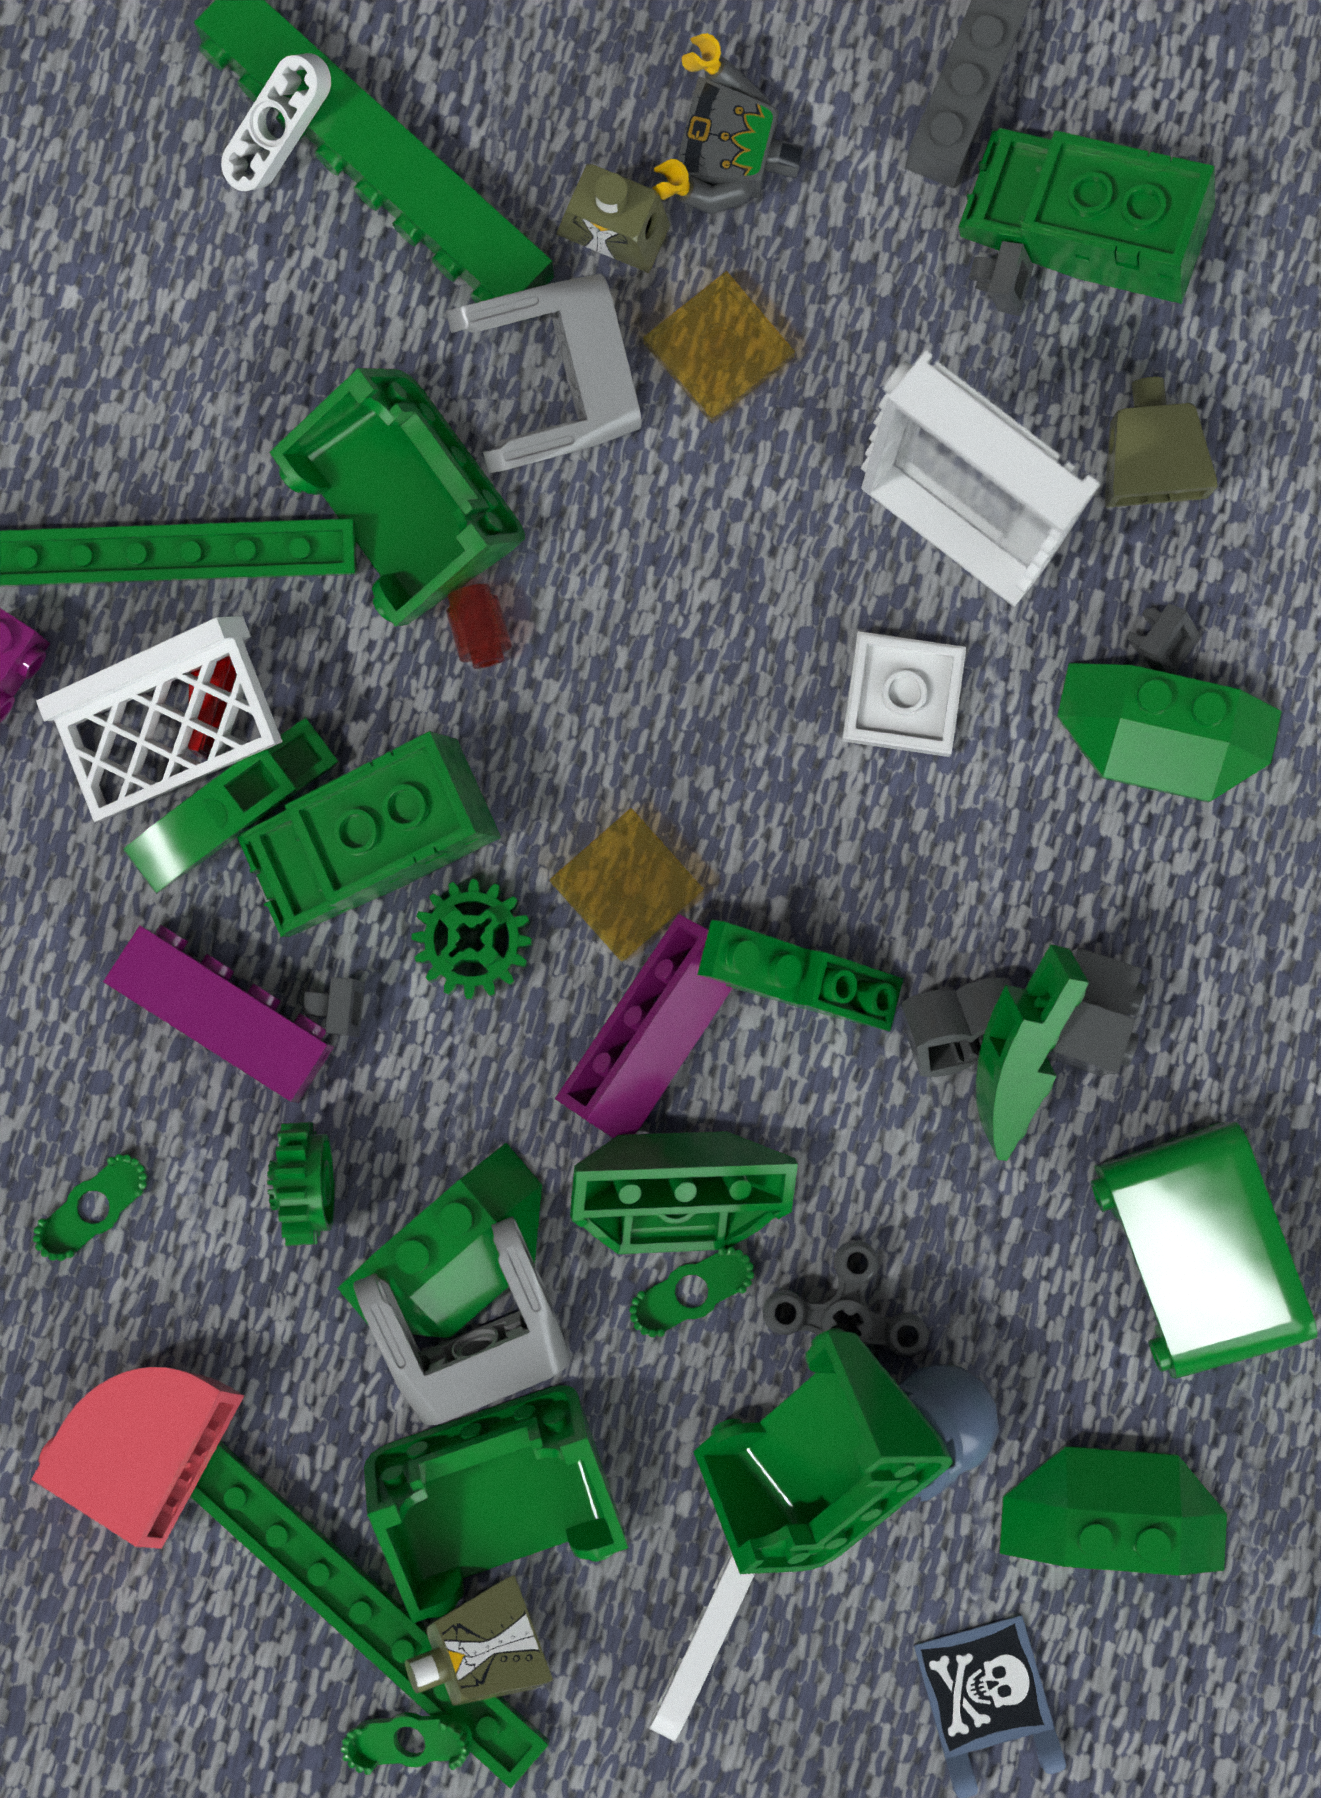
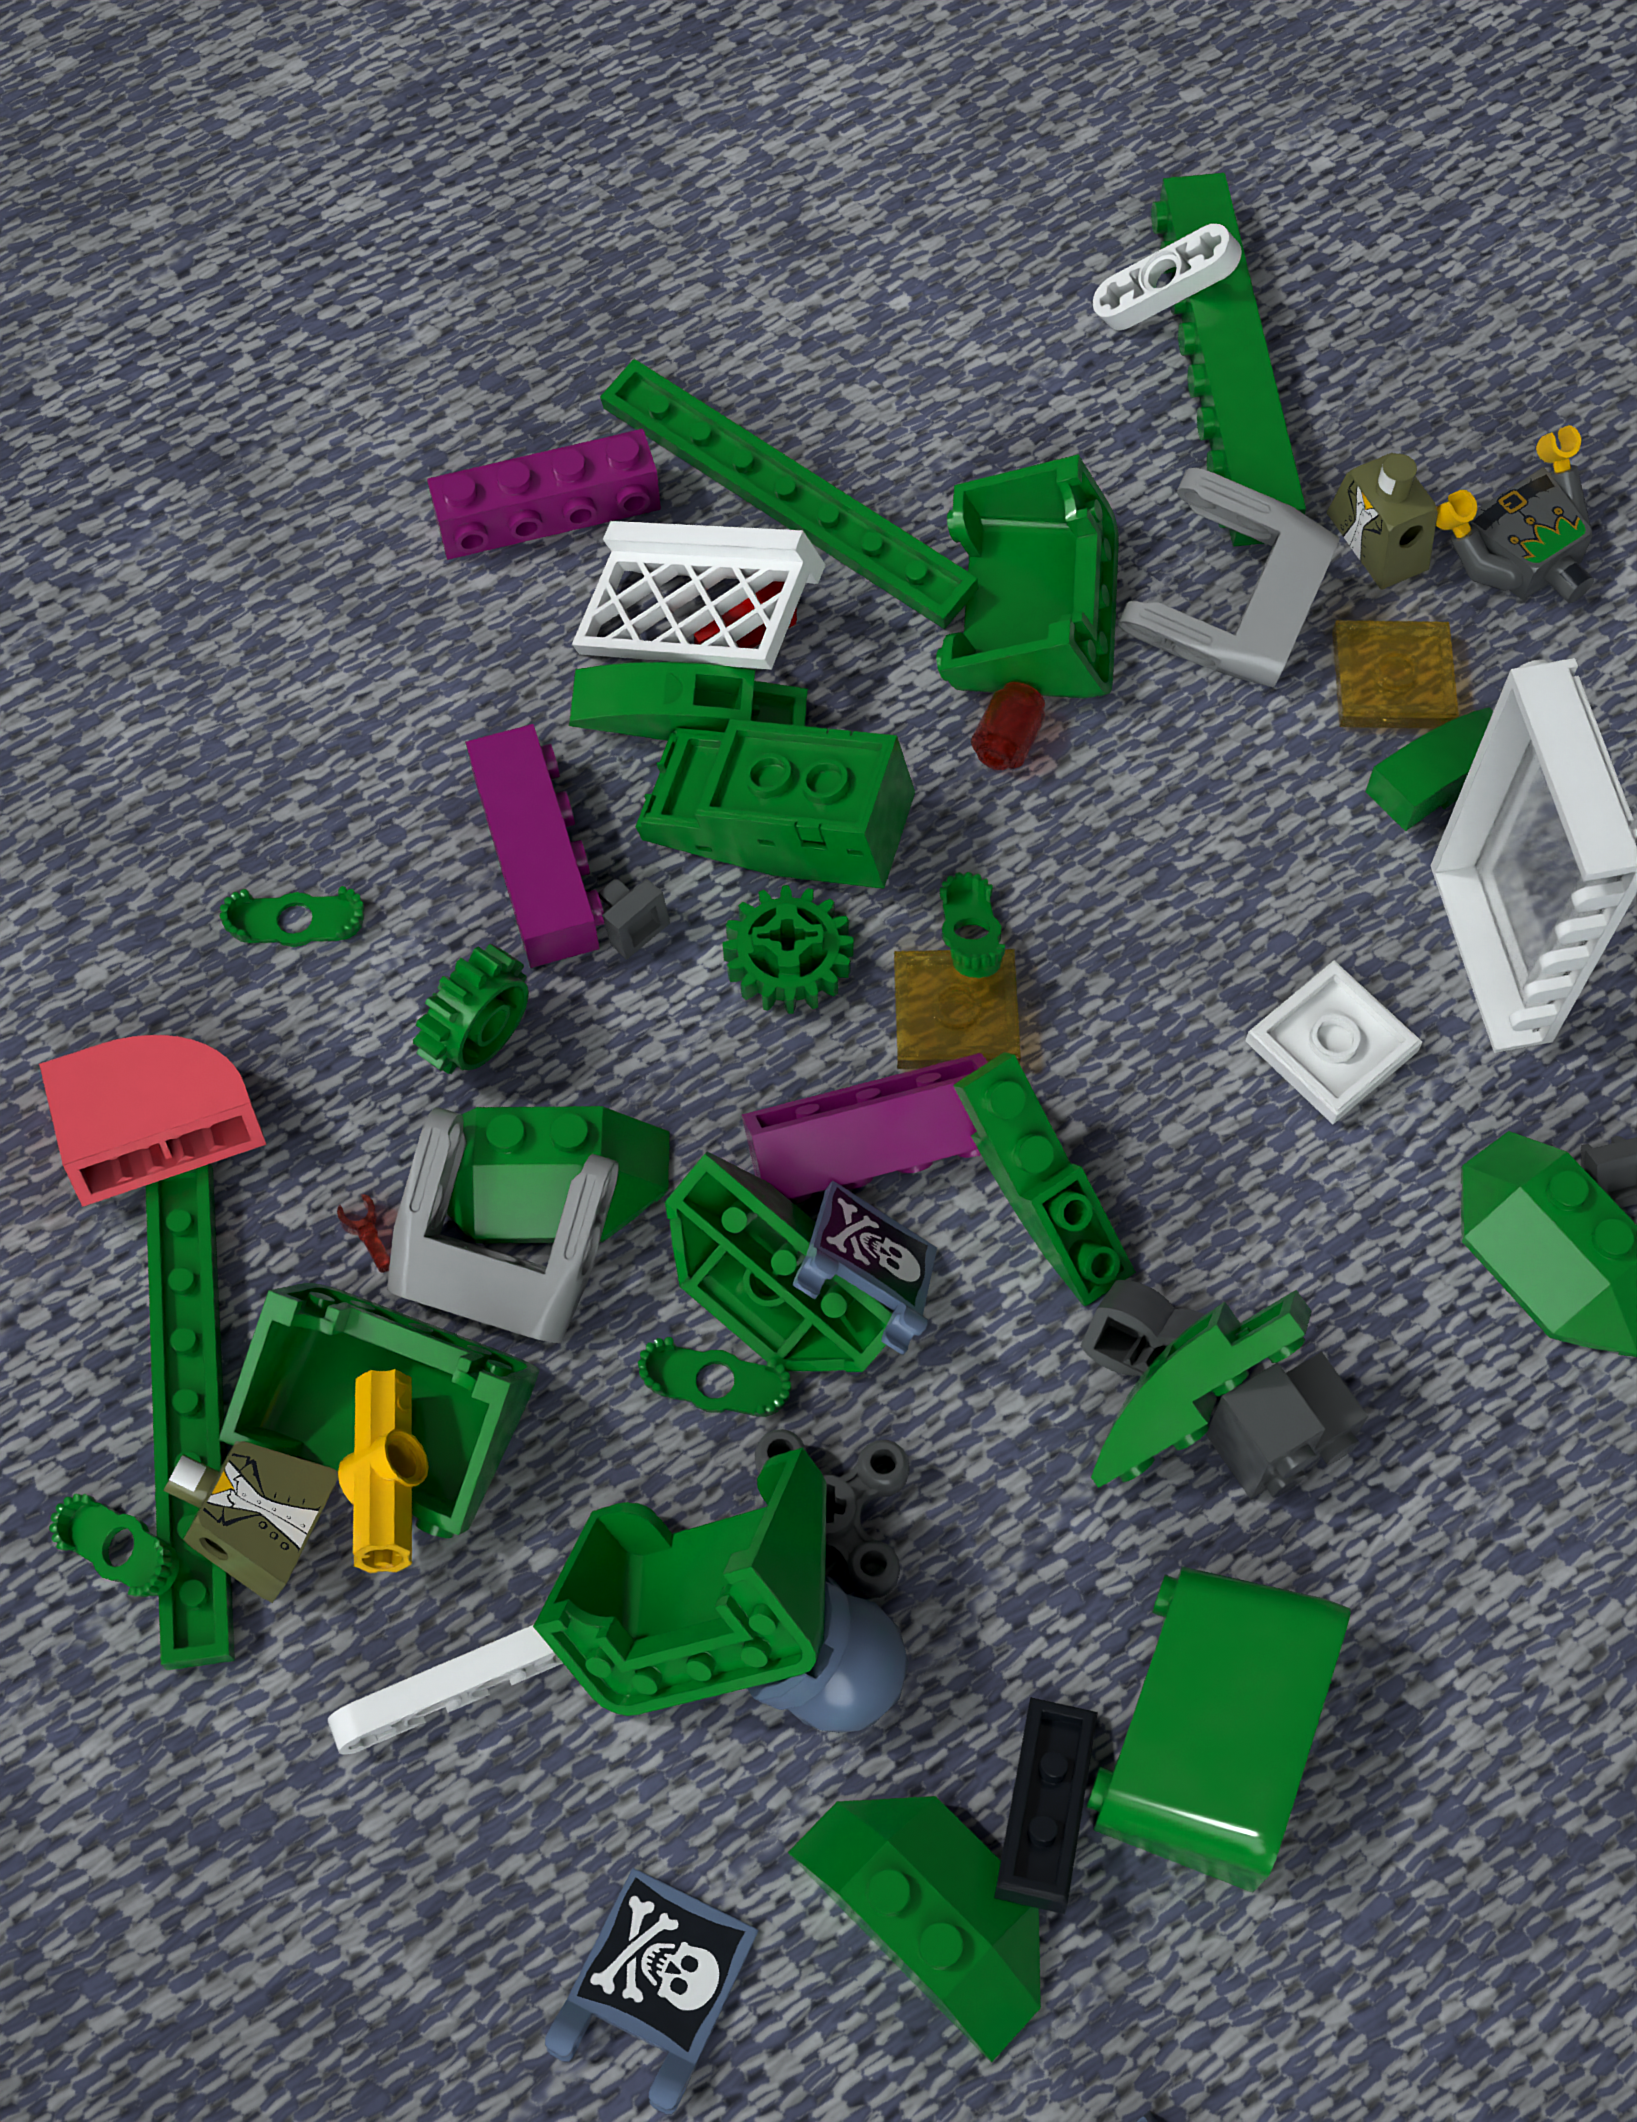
camera: 40 degrees right, 20 degrees down
(370, 1393) = (367, 1233): none -> clear red hand
(541, 1550) = (383, 1471): none -> yellow piece
(568, 796) = (968, 903): none -> green piece
(736, 1129) = (873, 1256): none -> flag
(815, 398) = (1428, 769): none -> green slope
(1137, 1393) = (1046, 1806): none -> black tile

